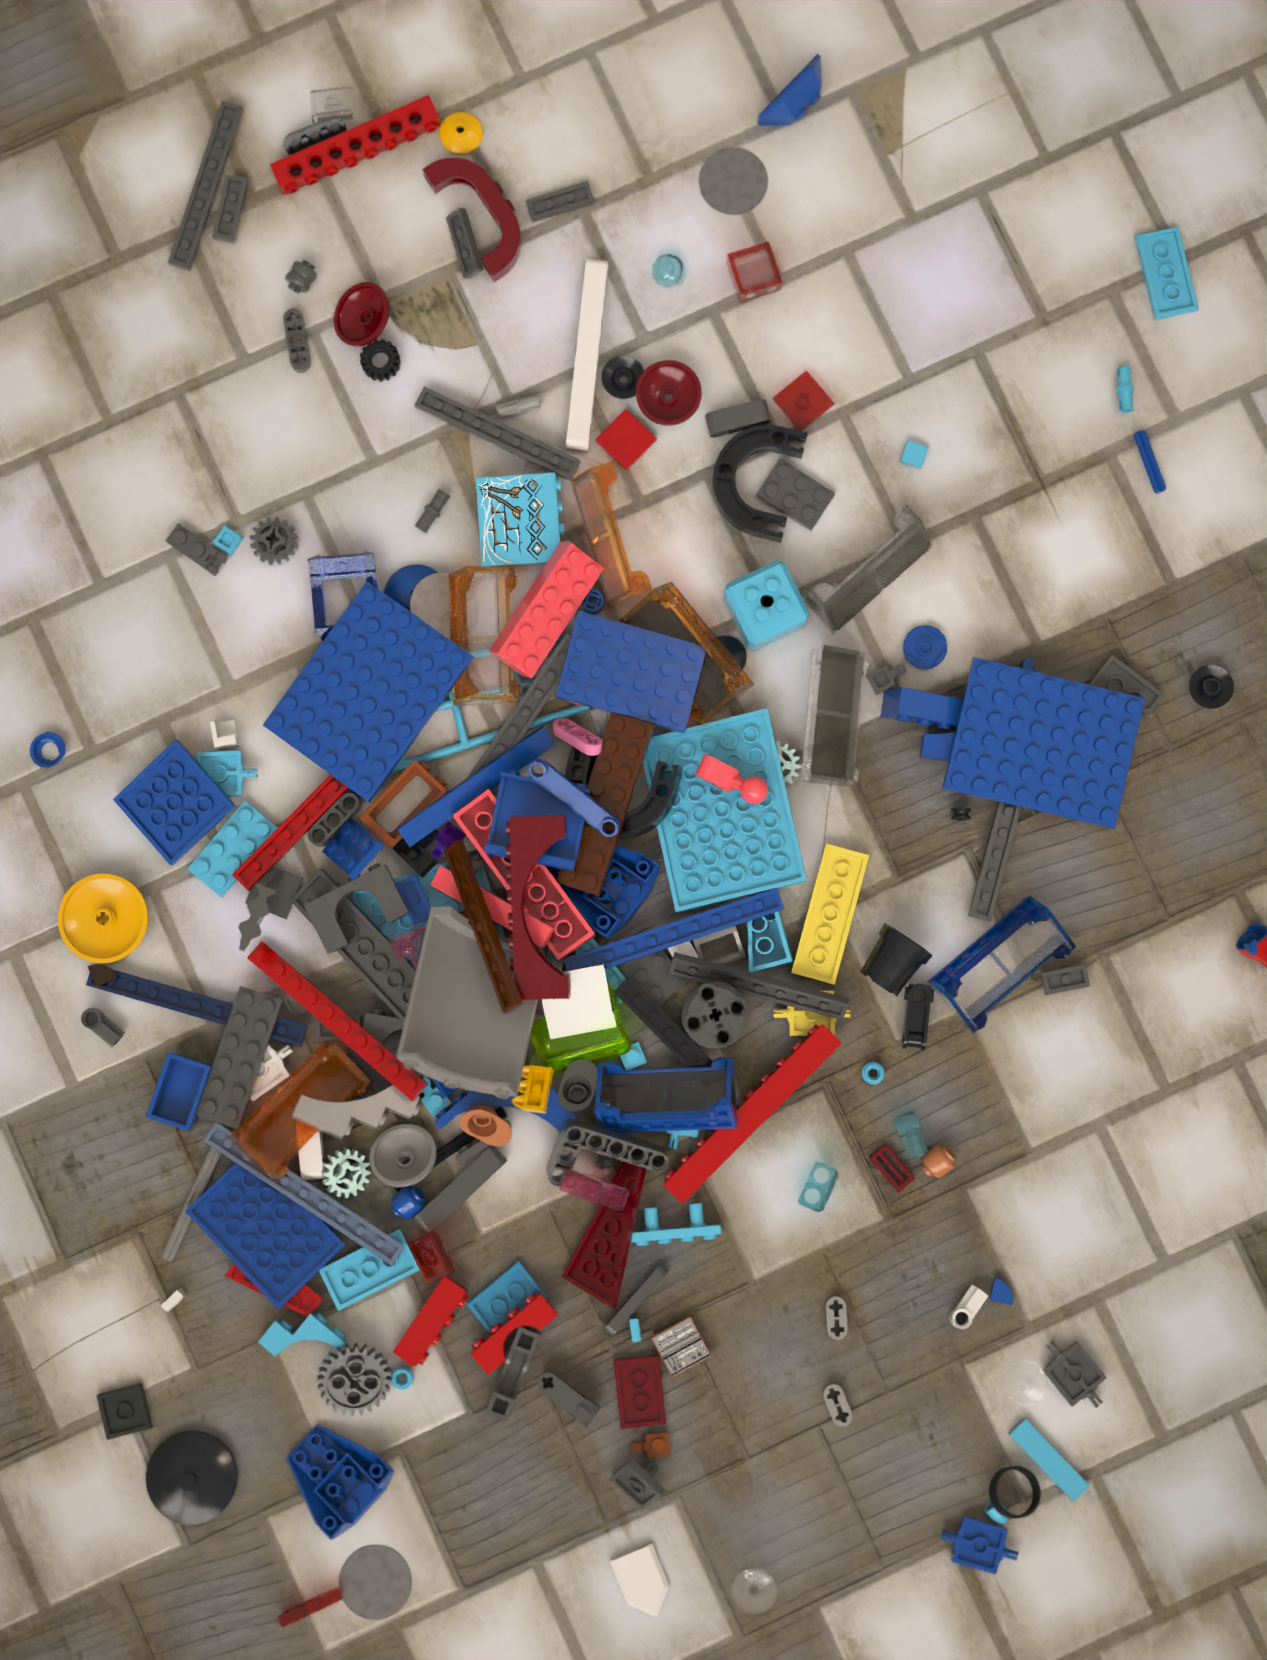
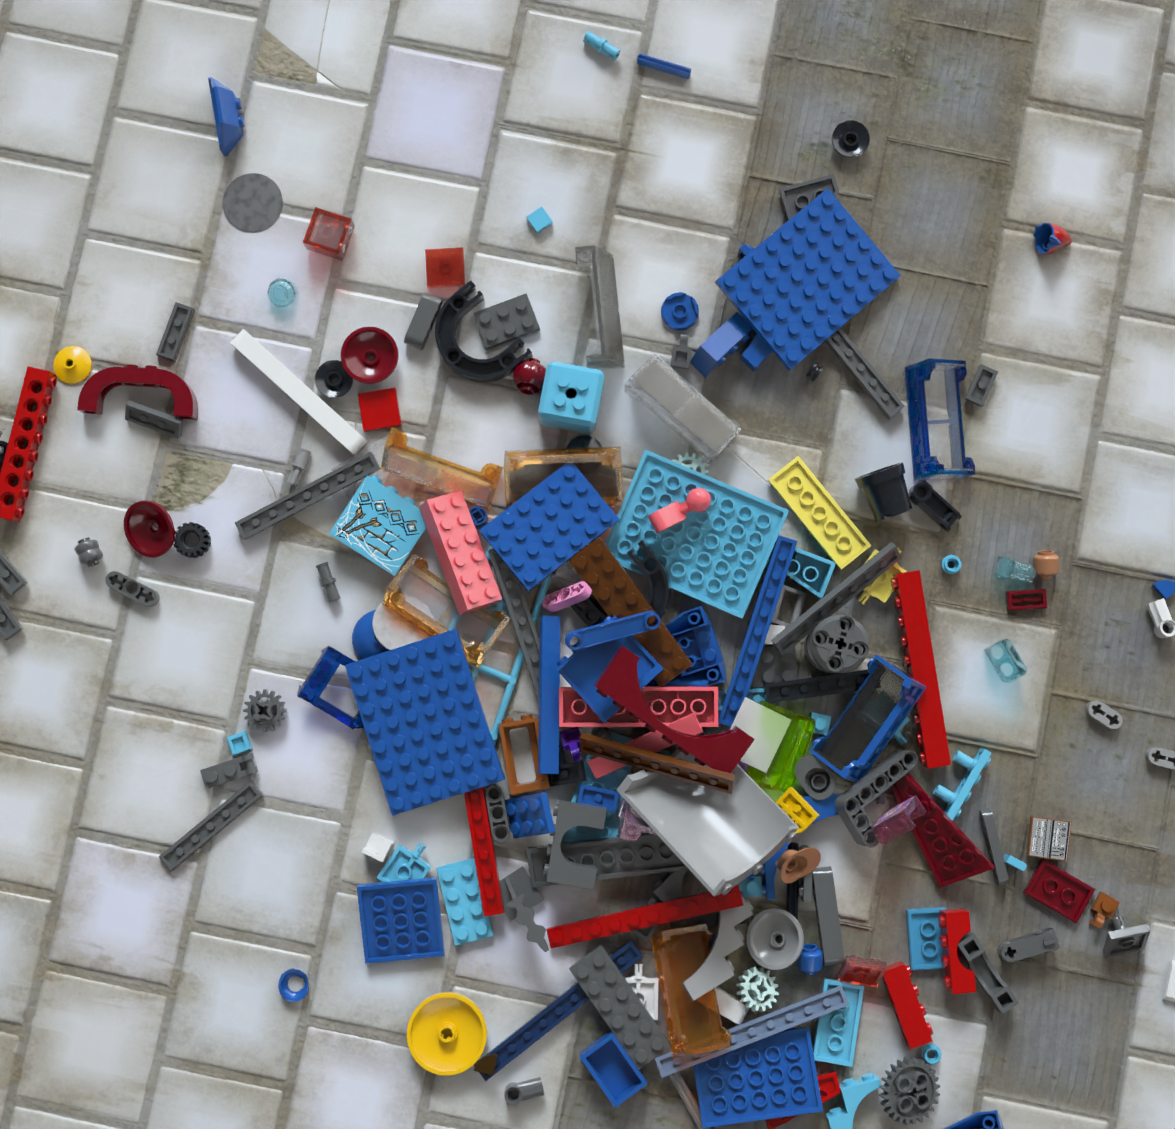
camera: 55 degrees left, 0 degrees up
(135, 570) = (211, 826): none -> dark grey tile
(757, 552) = (529, 376): none -> dark red plant

